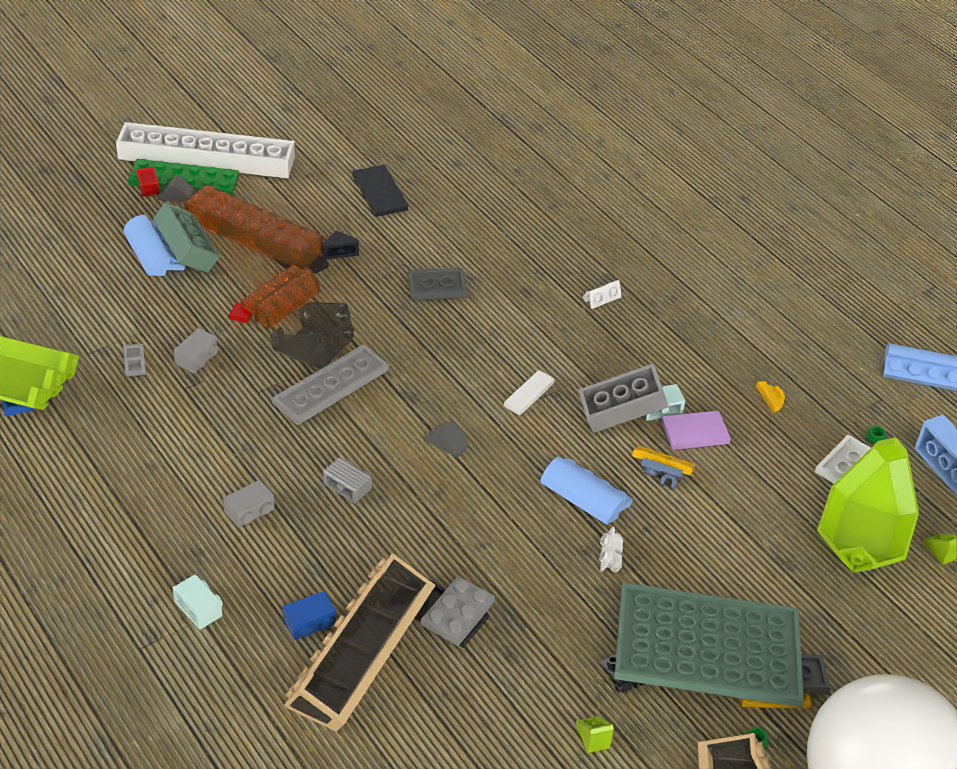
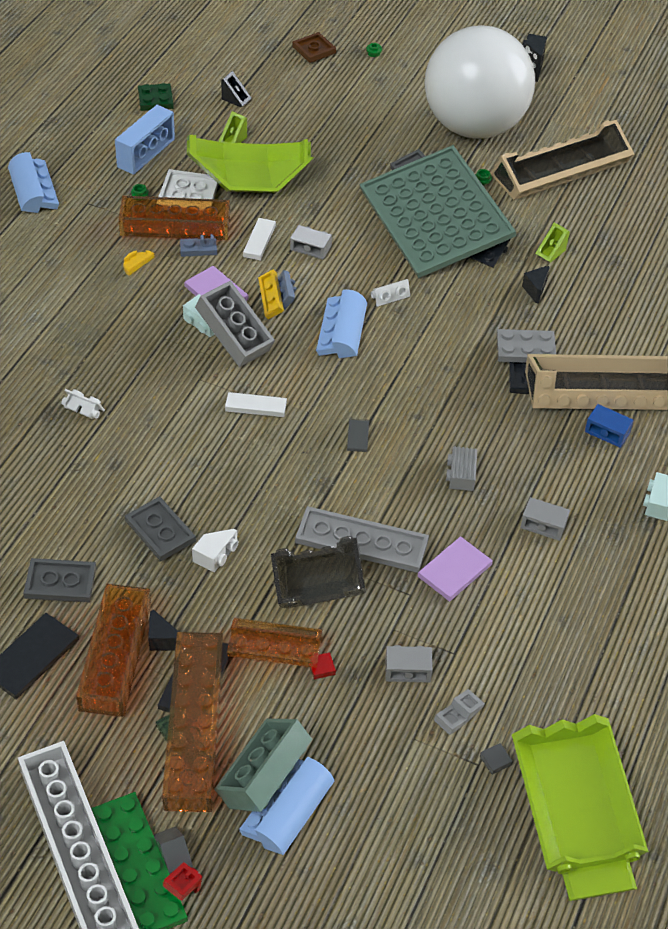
camera: 120 degrees left, 5 degrees up
(84, 361) = (496, 758): none -> dark grey tile
(256, 426) = (455, 568): none -> lavender tile
(340, 212) = (114, 650): none -> clear orange brick
(391, 299) = (214, 548): none -> white slope
(430, 220) = (60, 580): none -> dark grey plate
(541, 676) = (535, 282): none -> black slope
(723, 523) = (310, 242): none -> light grey brick
(755, 493) = (259, 239): none -> white tile
(768, 444) = (198, 247): none -> sand blue plate
(811, 434) = (174, 217): none -> clear orange brick

